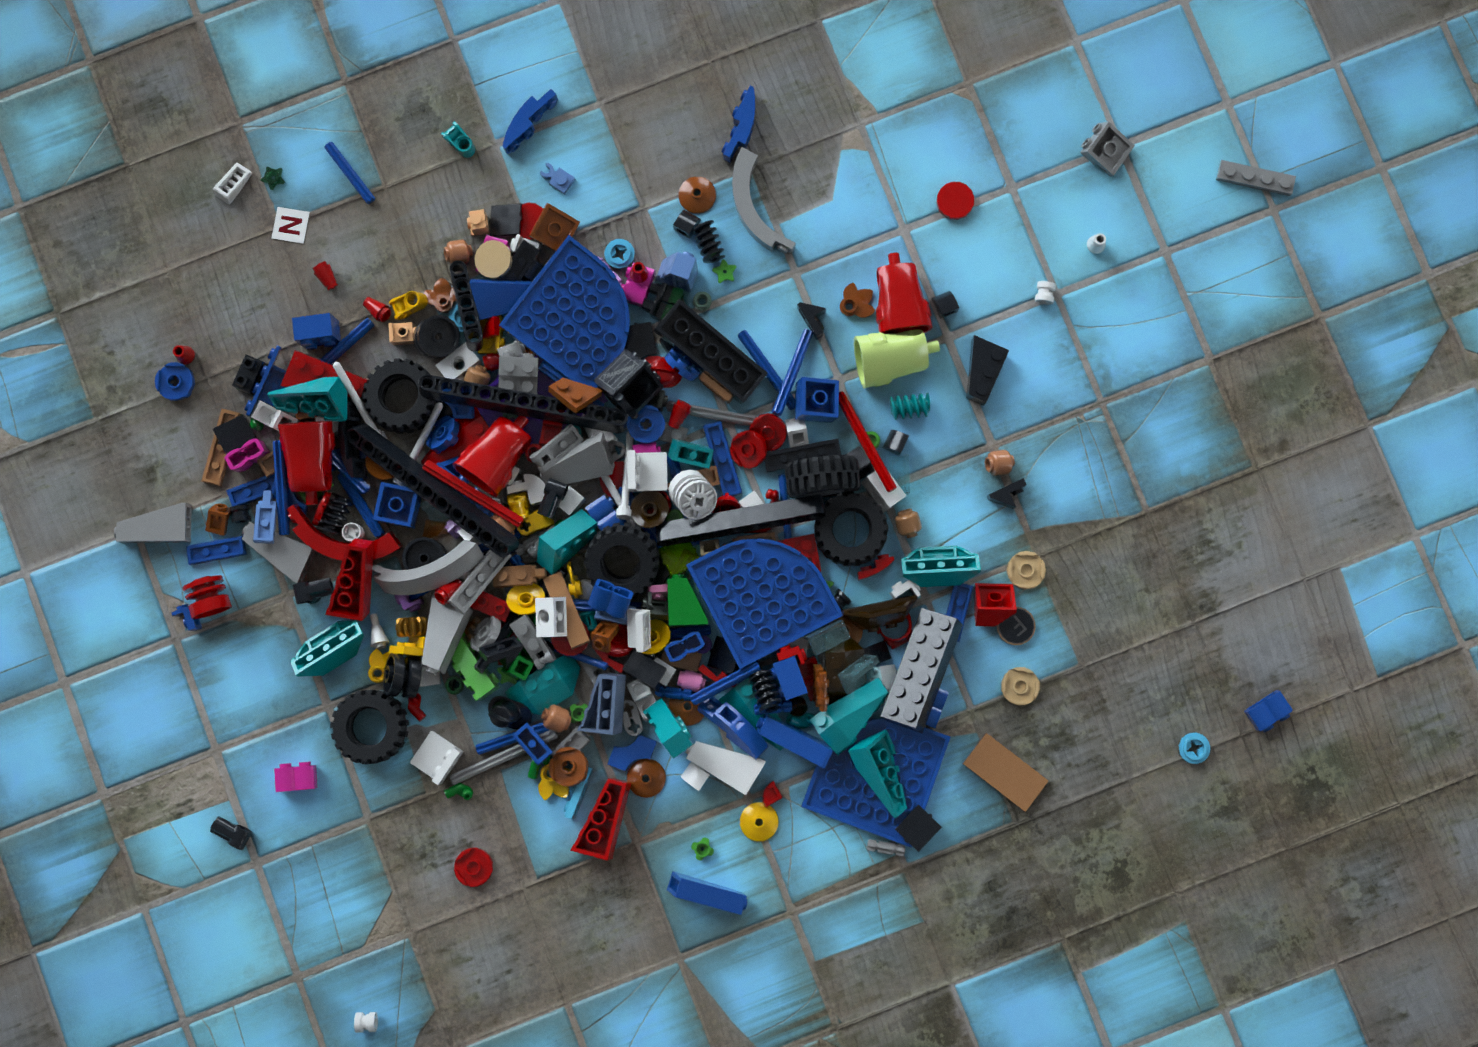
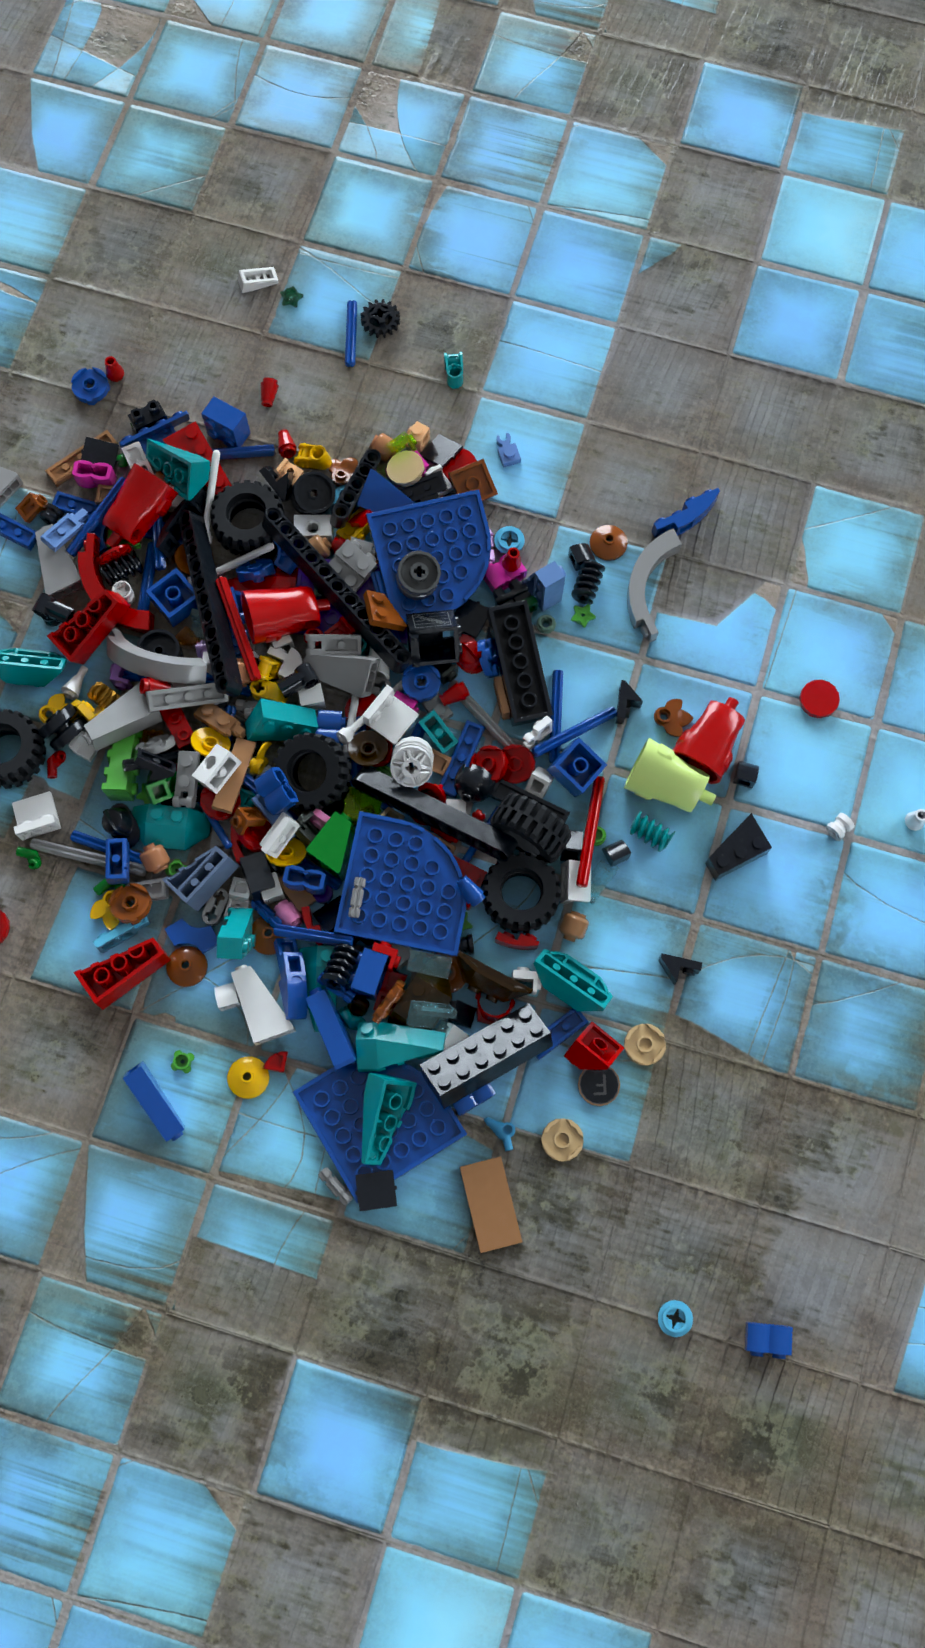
camera: 30 degrees right, 10 degrees down
(290, 225) = (274, 339): white sticker -> none
(359, 148) = (380, 318): none -> black gear
(405, 350) = (282, 485): none -> black slope
(450, 685) = (96, 767): dark green cone -> none
(470, 242) = (398, 443): none -> clear neon green bracket
(522, 125) = (511, 391): blue slope -> none
(582, 332) = (418, 563): none -> dark grey wheel
(737, 631) = (357, 897): none -> light grey axle
(750, 474) = (473, 783): none -> black cylinder
(766, 391) = (540, 730): none -> white plate
(818, 560) = (470, 891): none -> blue cone
(973, 713) = (503, 1131): none -> dark azure animal
(999, 462) = (691, 935): nougat head -> none

